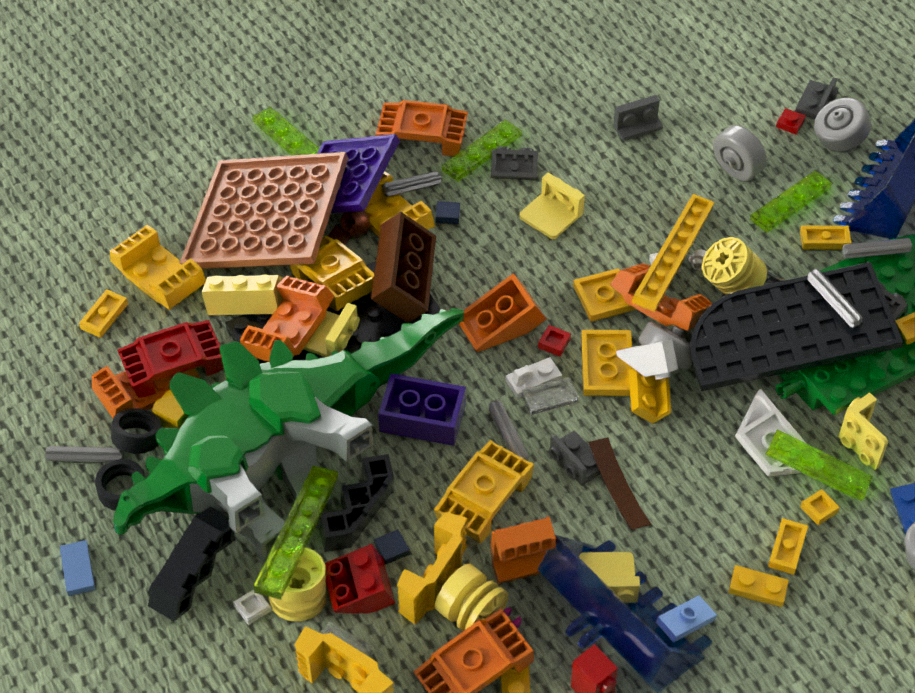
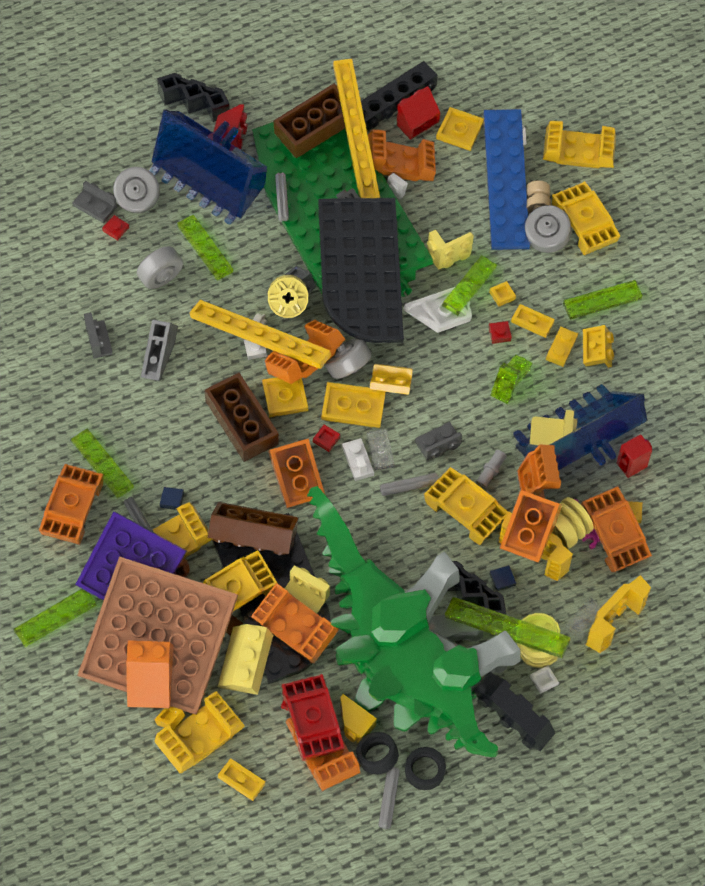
camera: 85 degrees left, 10 degrees up
(77, 568) = (497, 804): medium blue tile -> none
(173, 241) = (170, 716): none -> yellow plate
(220, 206) = (149, 674): none -> orange slope
(359, 582) = (537, 597): red slope -> none
(422, 409) = (388, 536): dark purple brick -> none
(445, 537) = (530, 526): none -> orange slope
(514, 163) = (127, 438): dark grey bracket -> none
(535, 512) = (491, 469): none -> light grey pin
(554, 208) = (185, 417): light yellow bracket -> none
(560, 252) = (241, 417): none -> reddish brown brick
(617, 484) = (469, 418): reddish brown sticker -> none
(641, 173) = (159, 348): none -> dark grey slope
(651, 358) = (369, 369): white slope -> none
(686, 618) = (586, 394): light blue plate -> none
(690, 523) = (509, 377): none -> clear neon green bracket
(760, 511) = (500, 332): none -> red plate
(769, 630) = (598, 346): none -> yellow bracket
(824, 237) = (250, 232): yellow plate -> none
(834, 298) = (349, 230): axle -> none
(849, 630) = (602, 299): none -> clear neon green plate

